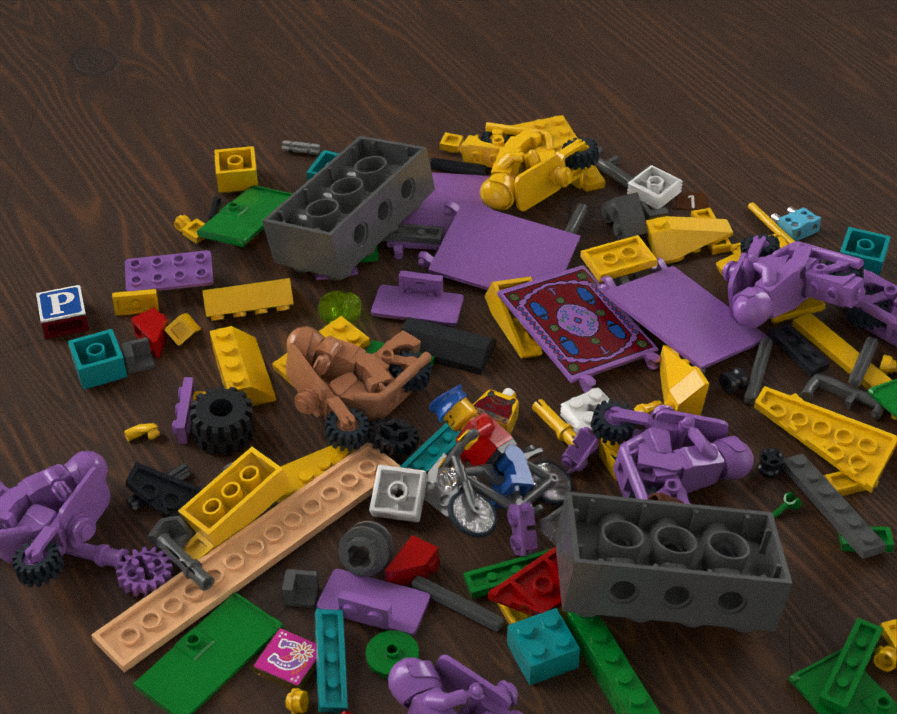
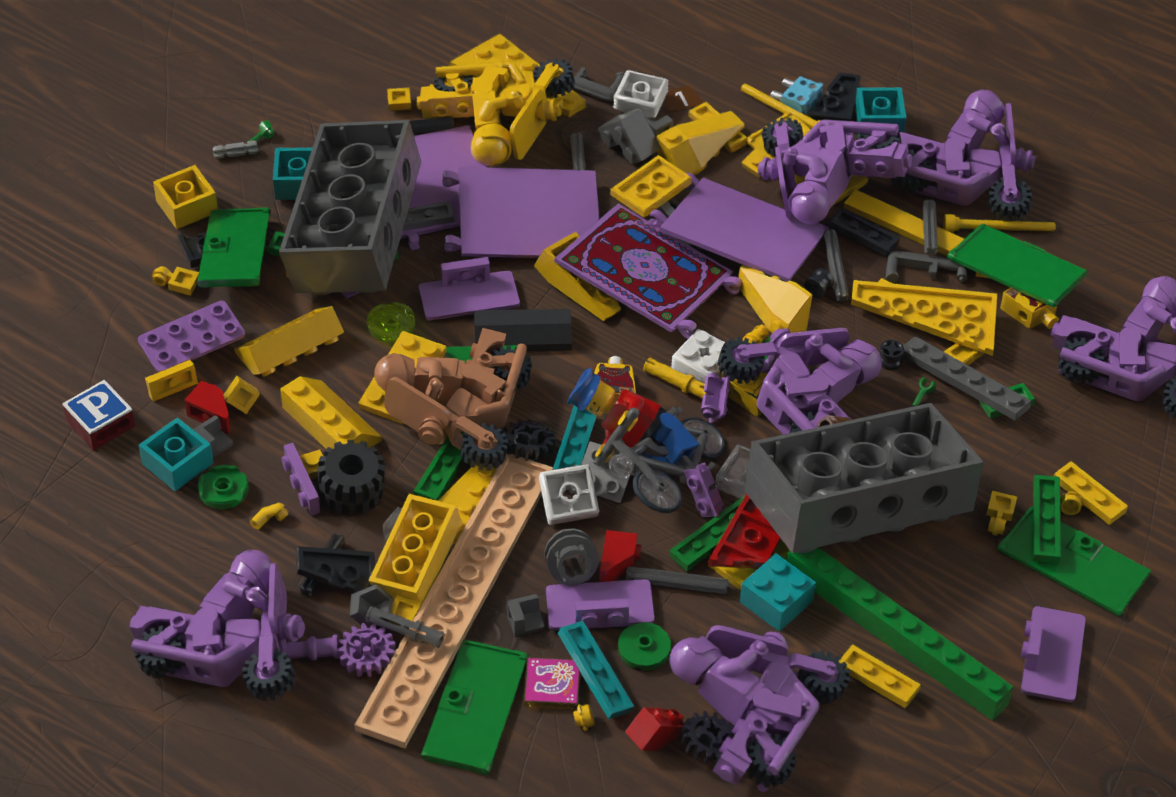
camera: 25 degrees left, 5 degrees up
(120, 397) = (223, 487): none -> green plate
(300, 442) = (440, 472): none -> green plate
(333, 140) = (265, 131): none -> green hand
(809, 638) = (1000, 509): none -> yellow plate
(832, 234) = (839, 99): none -> black wing

